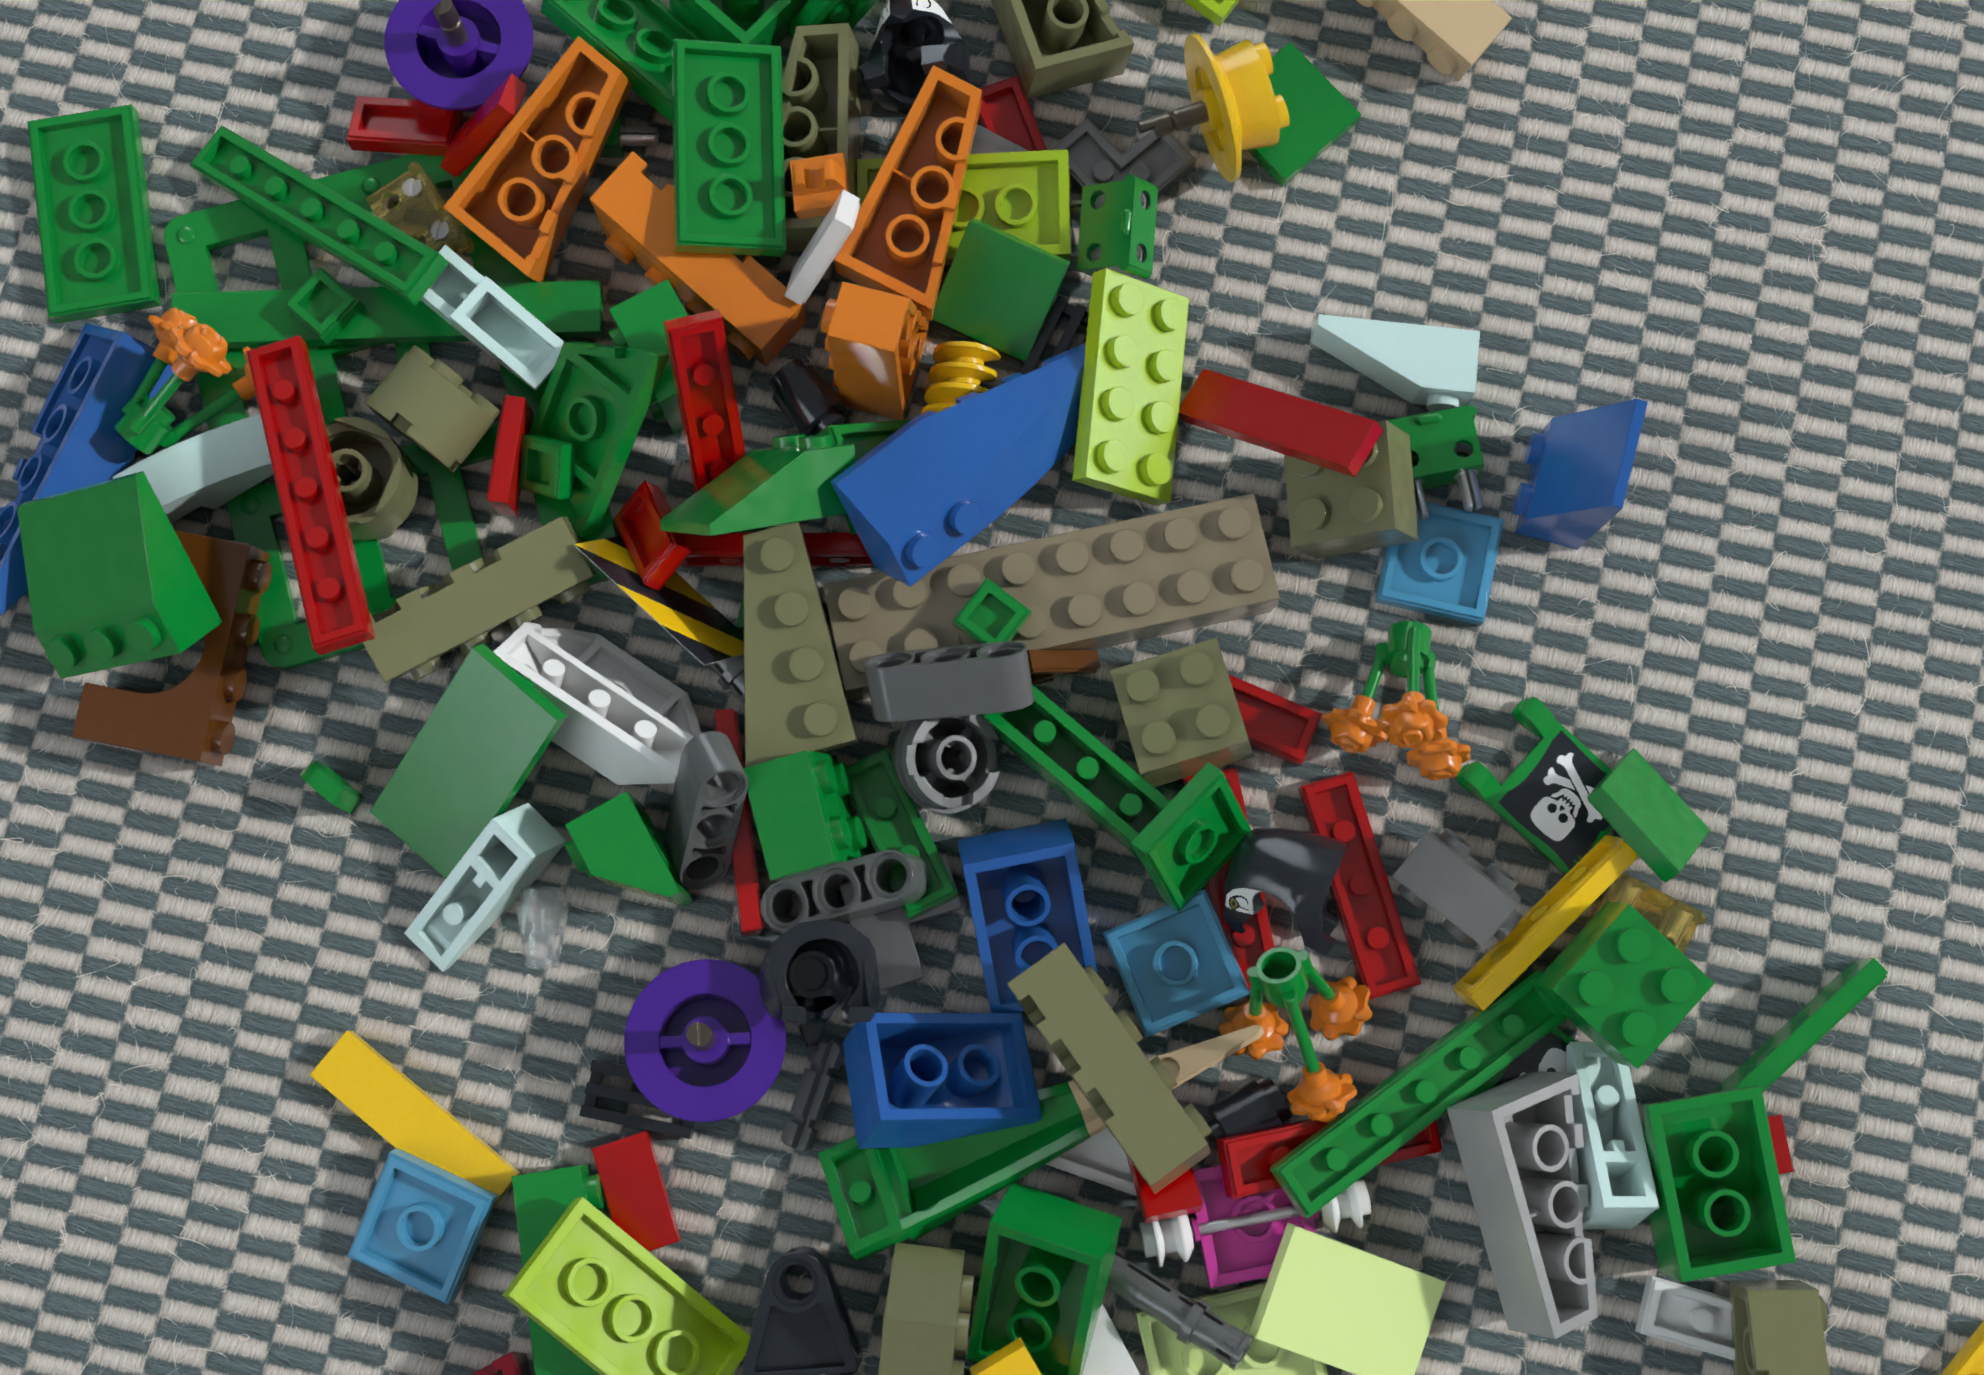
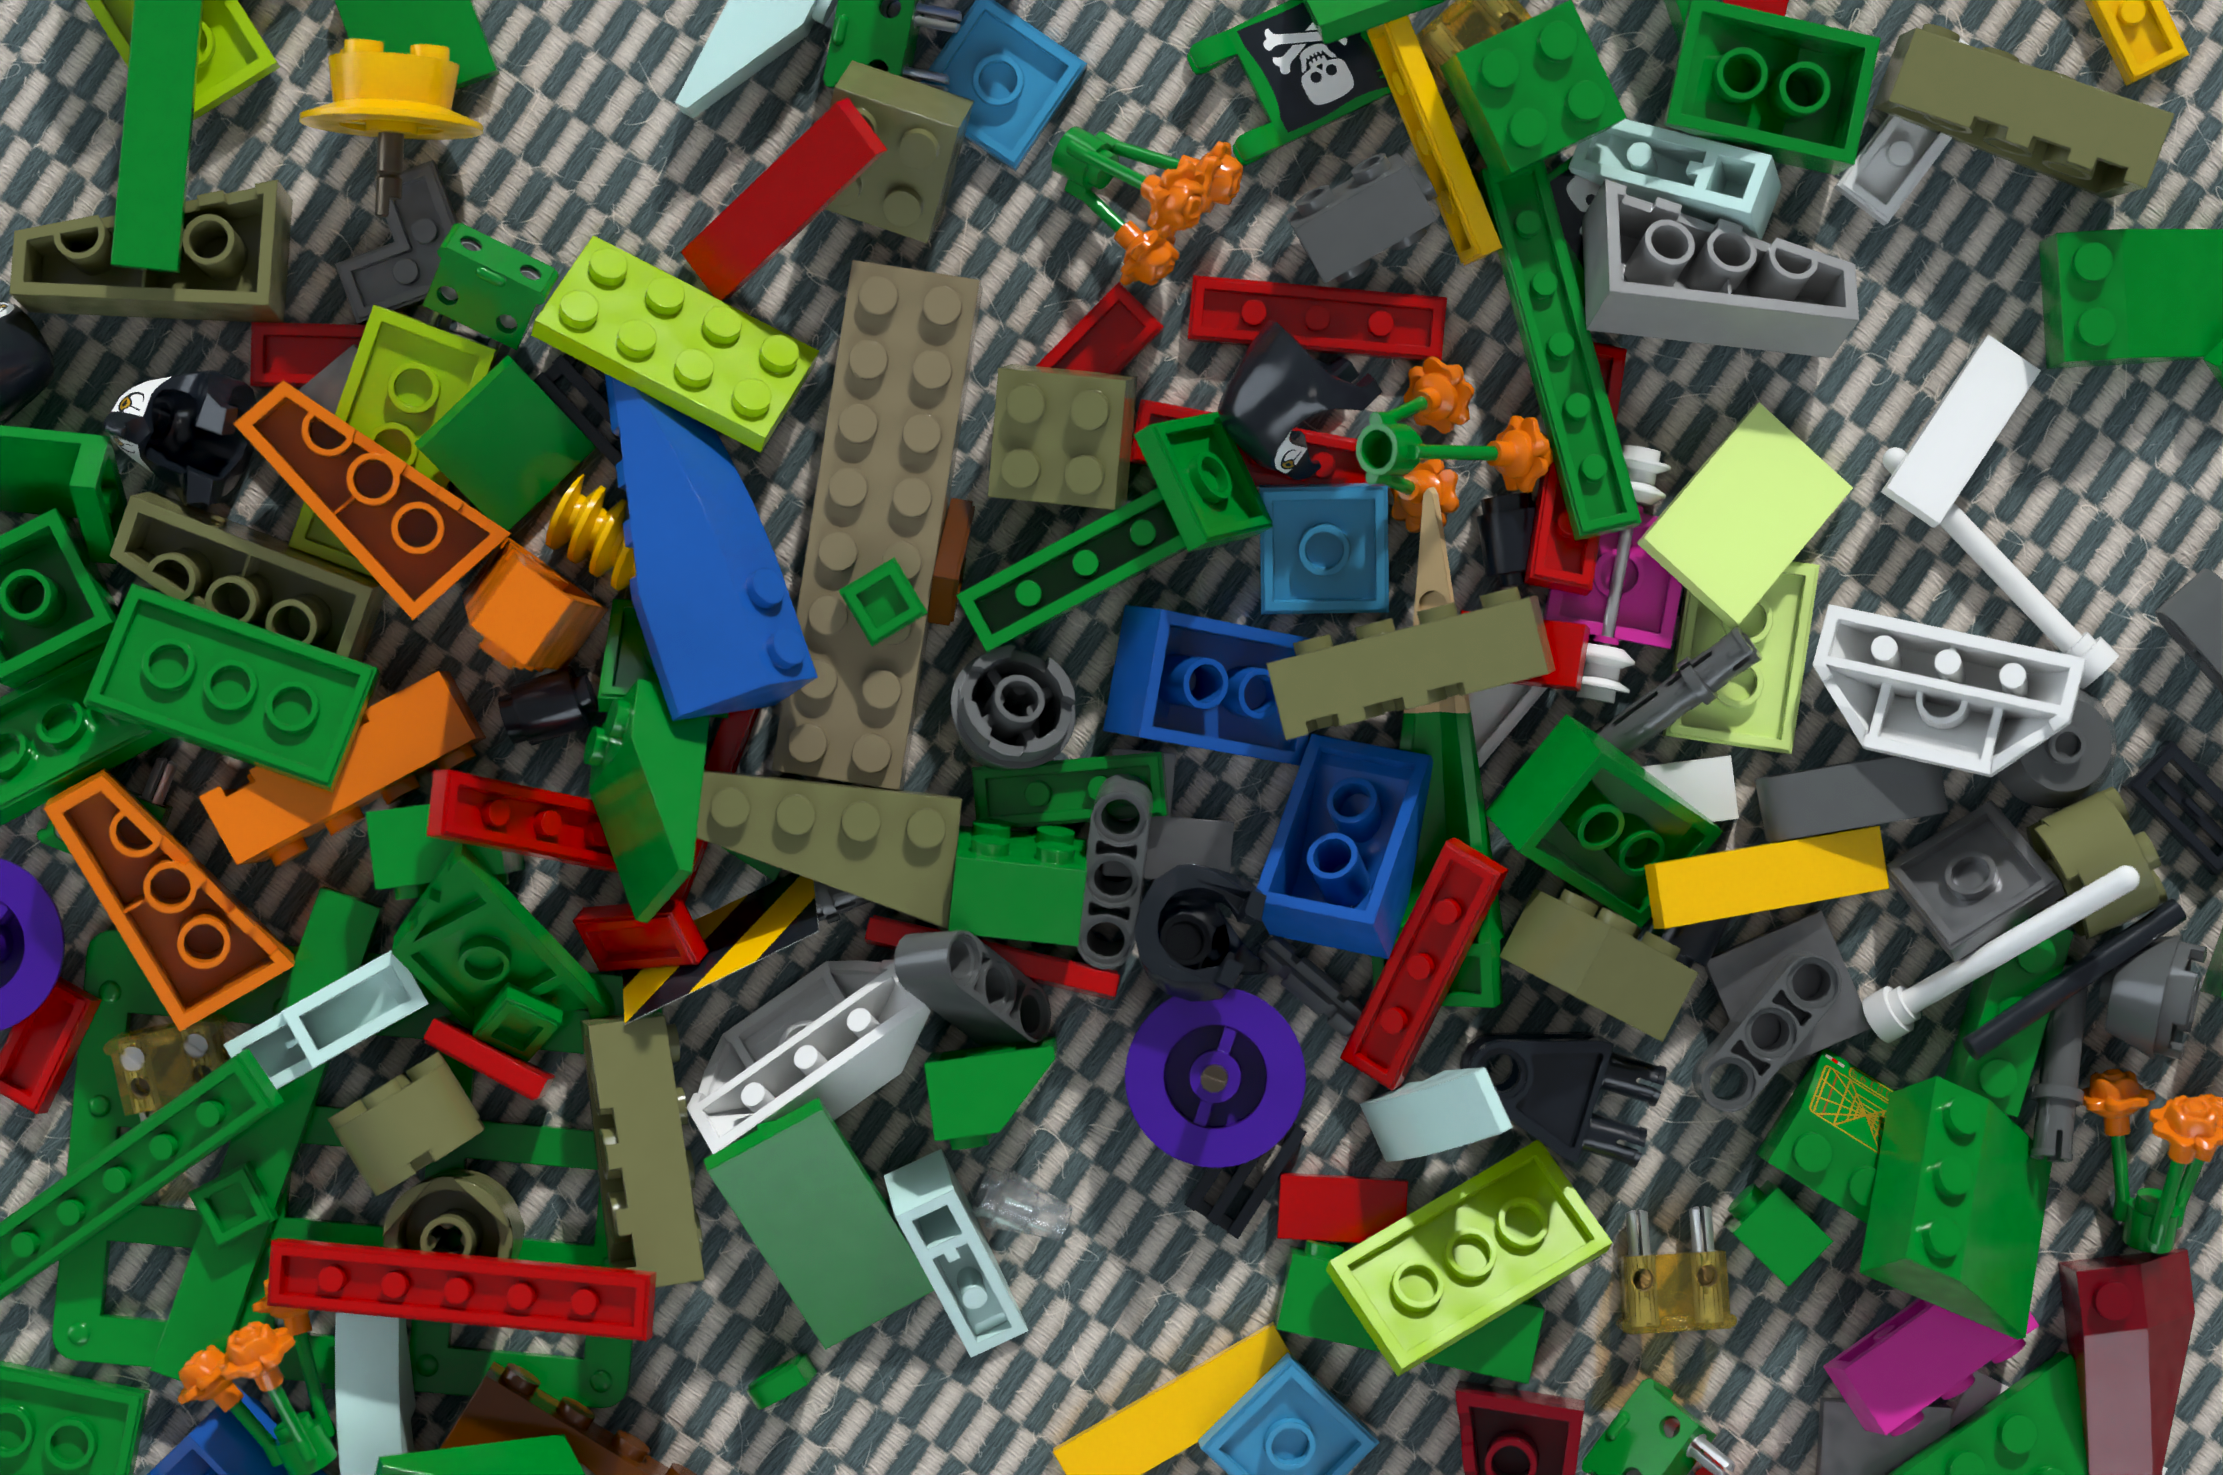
camera: 70 degrees left, 10 degrees up
(484, 126) = (92, 952): red tile -> none
(741, 1240) = (1436, 1114): none -> light aqua slope
(818, 184) = (316, 601): orange tile -> none
(823, 247) = (390, 626): white tile -> none
(866, 1180) = (1424, 963): none -> red tile
(949, 681) = (938, 675): dark grey beam -> none

